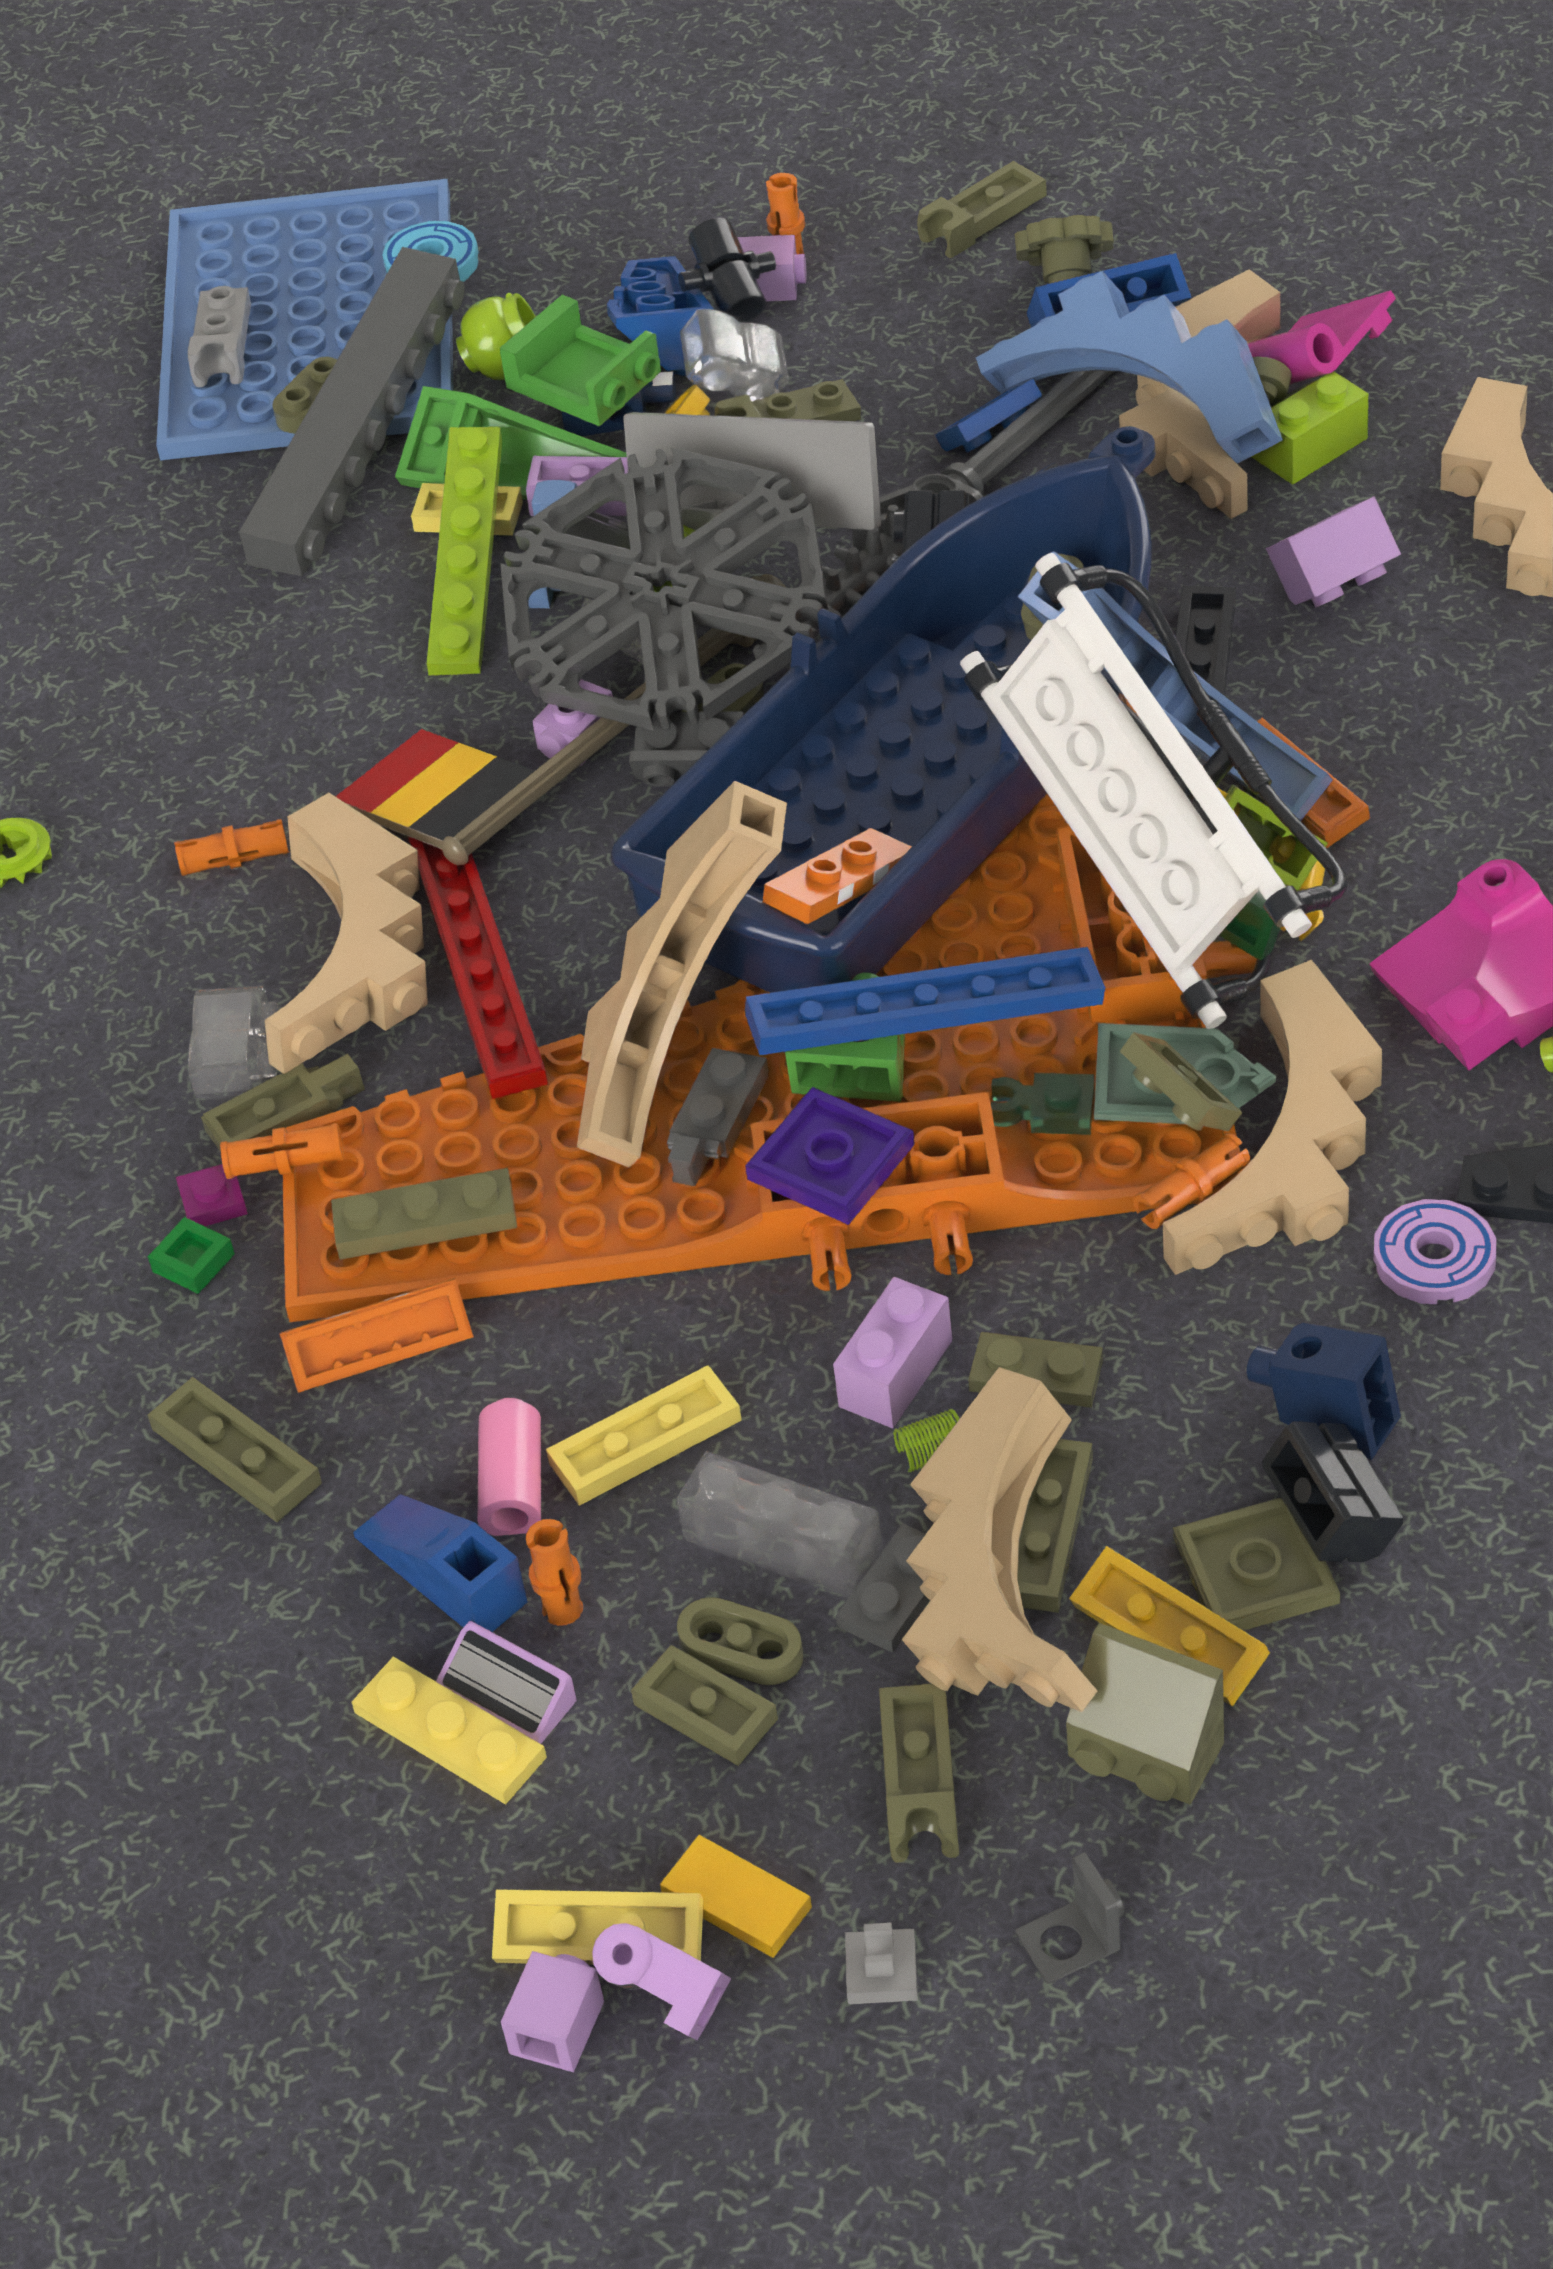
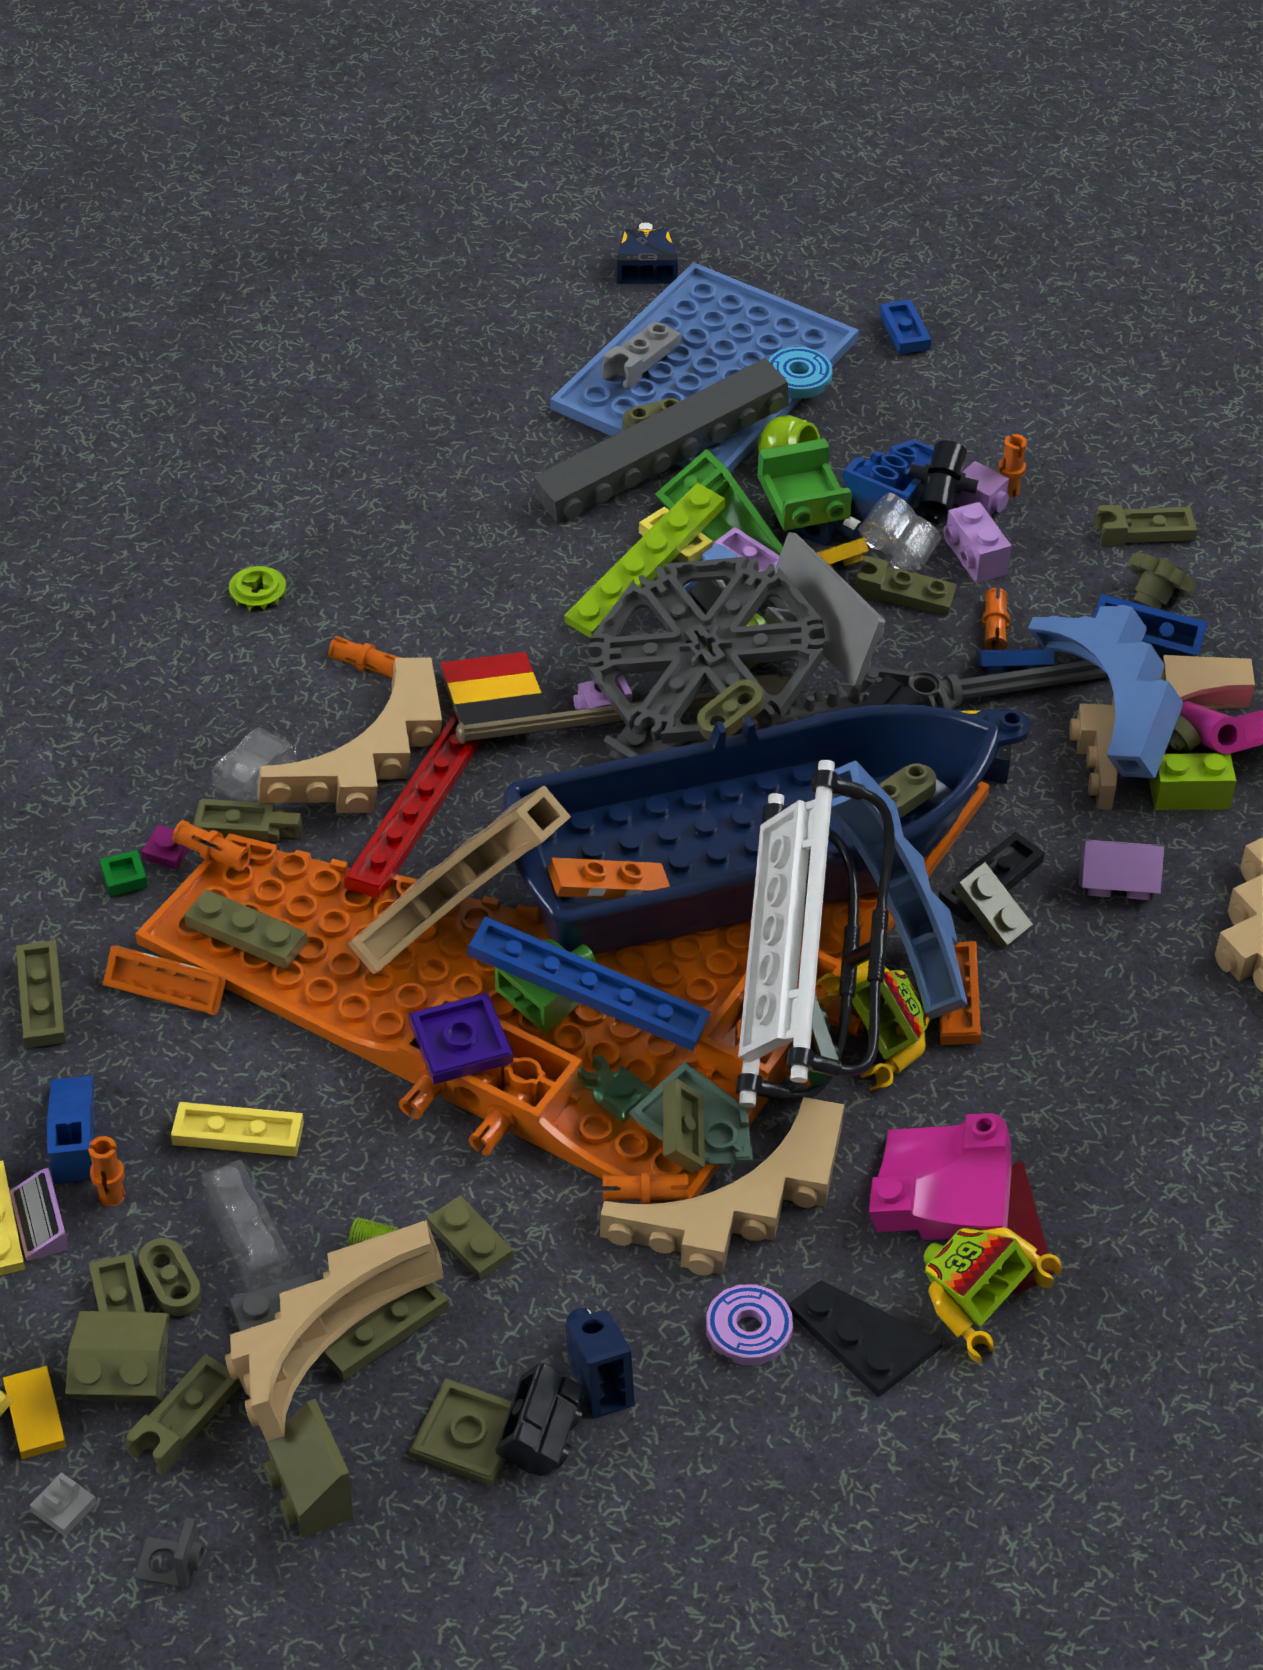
camera: 30 degrees right, 0 degrees up
(106, 233) = (646, 256): none -> dark blue torso
(493, 150) = (905, 326): none -> blue plate
(509, 1467) = (154, 1098): bright pink brick -> none
(714, 1112) = (437, 973): dark grey hinge -> none
(768, 630) = (729, 708): none -> olive plate
(787, 1759) = (118, 1357): none -> olive slope
(825, 321) = (977, 542): none -> lavender brick
(893, 1352) = (399, 1173): lavender brick -> none
(922, 391) = (995, 619): none -> orange pin
(1150, 1609) = (384, 1431): yellow plate -> none
(1242, 671) = (992, 905): none -> plate

